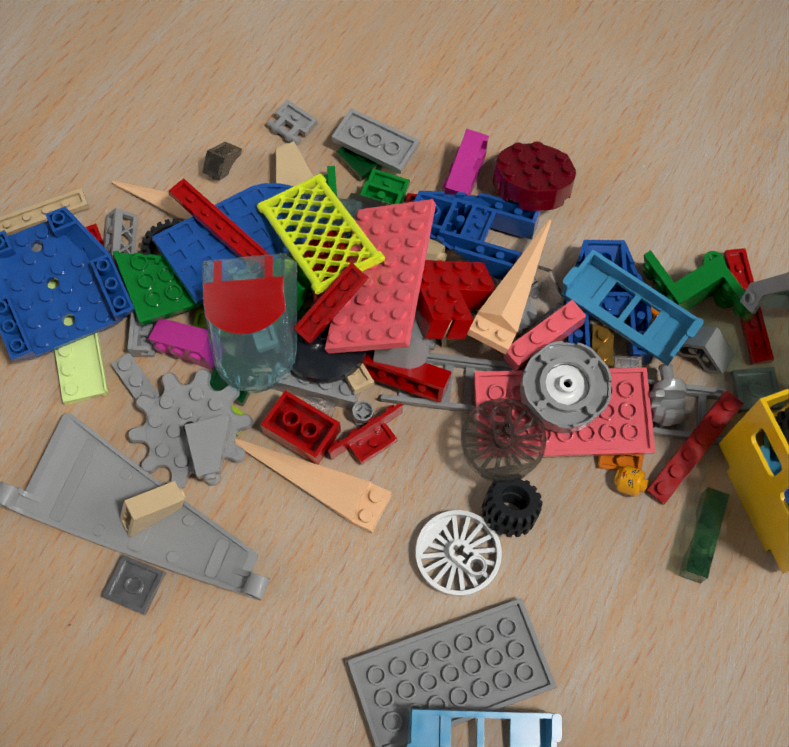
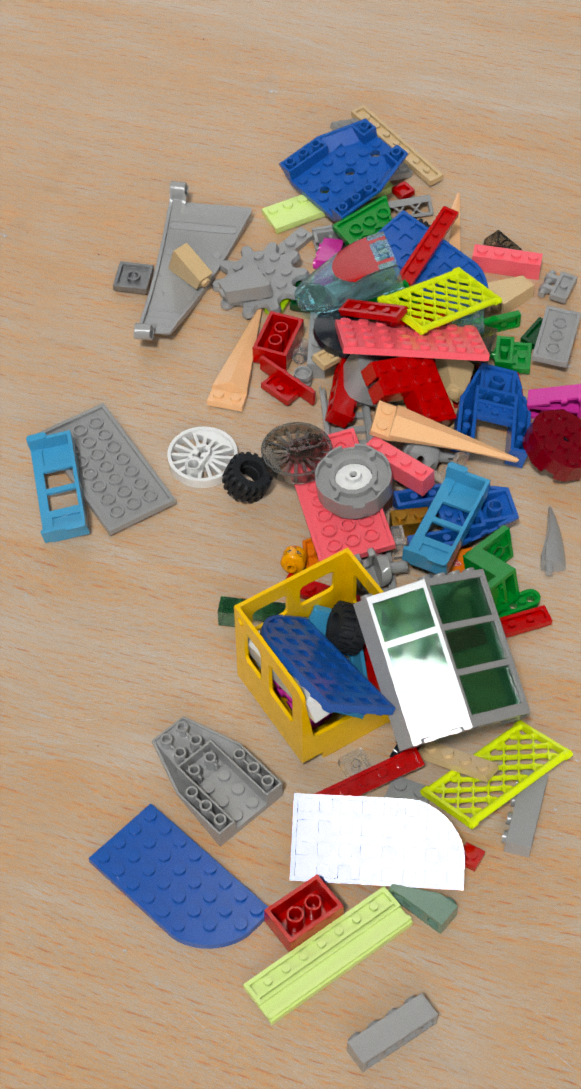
camera: 80 degrees right, 15 degrees down
(244, 159) = (508, 261): none -> coral brick
(651, 226) = (553, 550): none -> light grey piece

